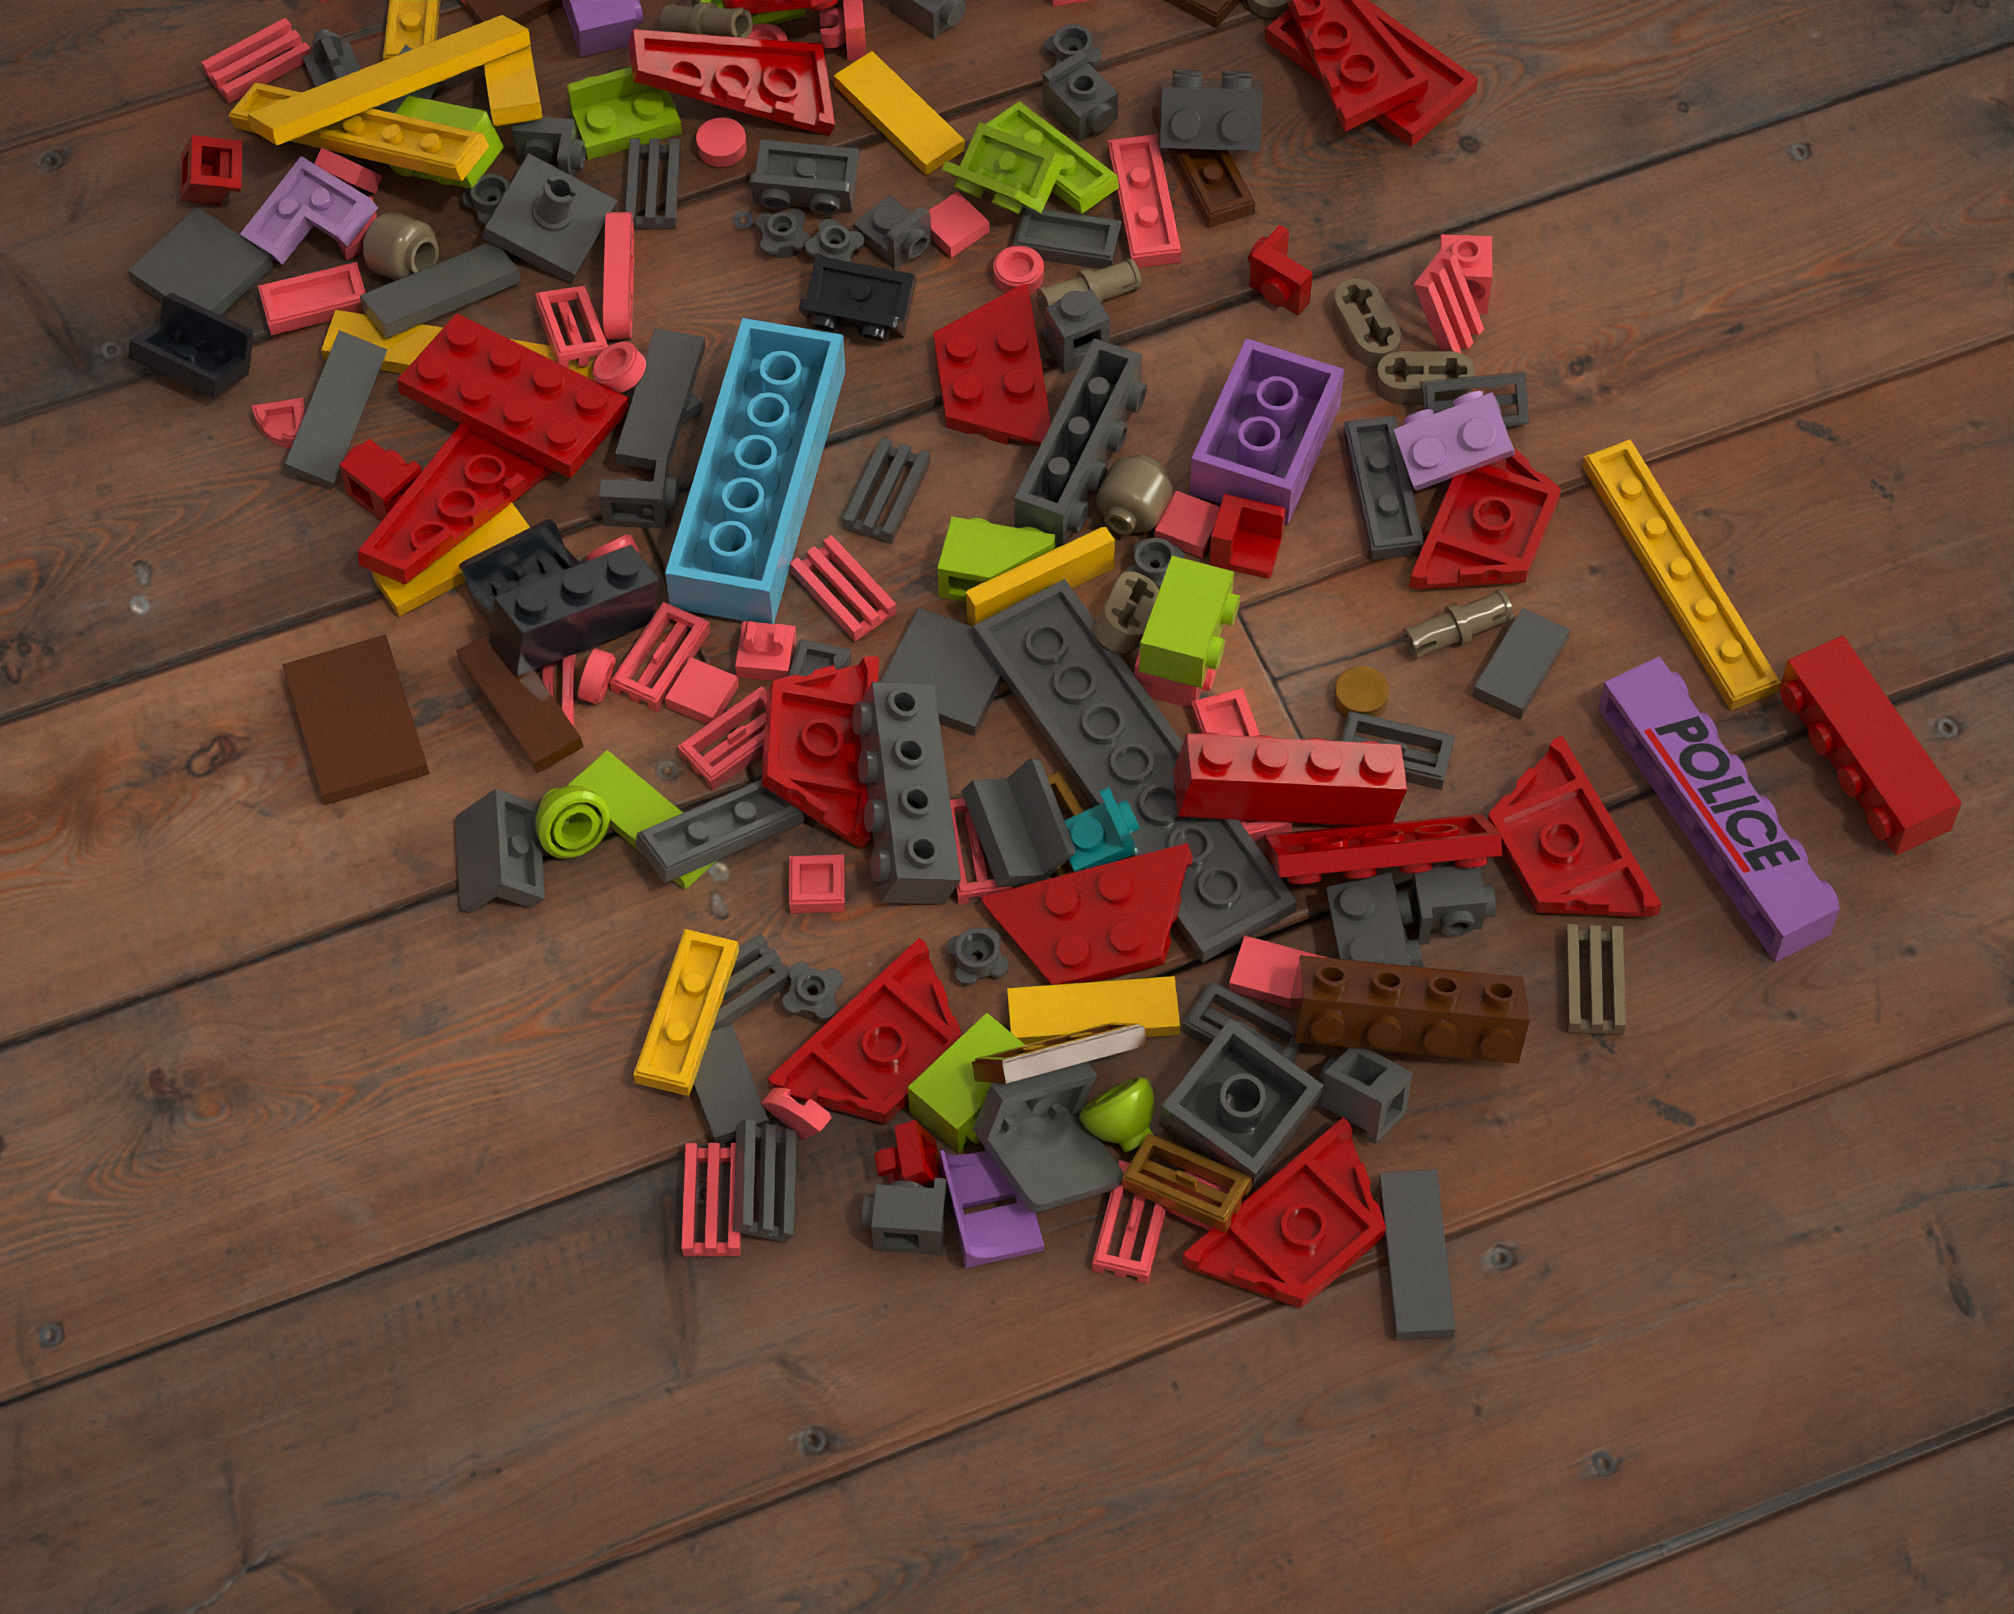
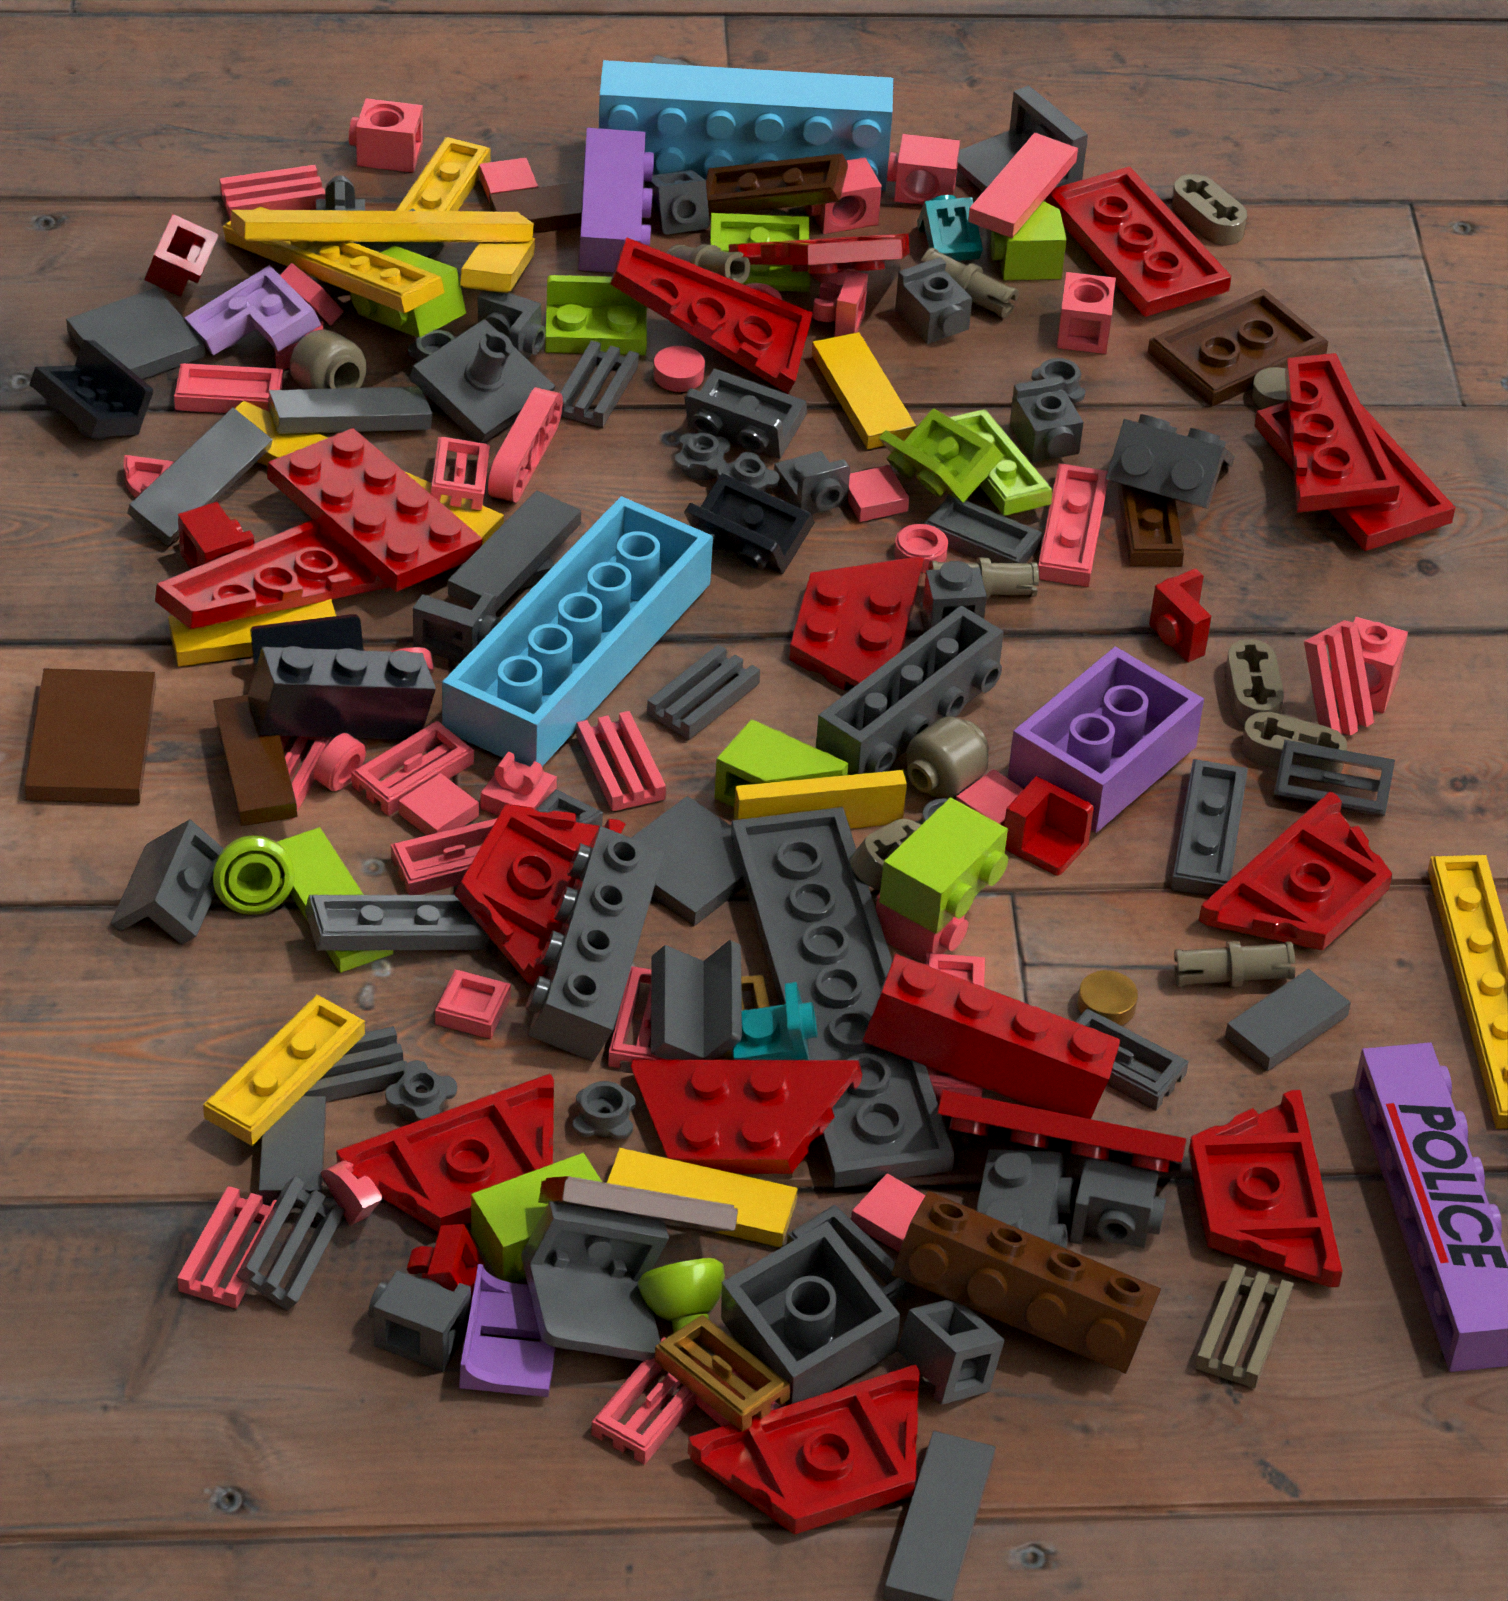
camera: 15 degrees right, 15 degrees down
(619, 366) = (487, 511): coral tile -> none
(1453, 439) = (1294, 795): lavender bracket -> none

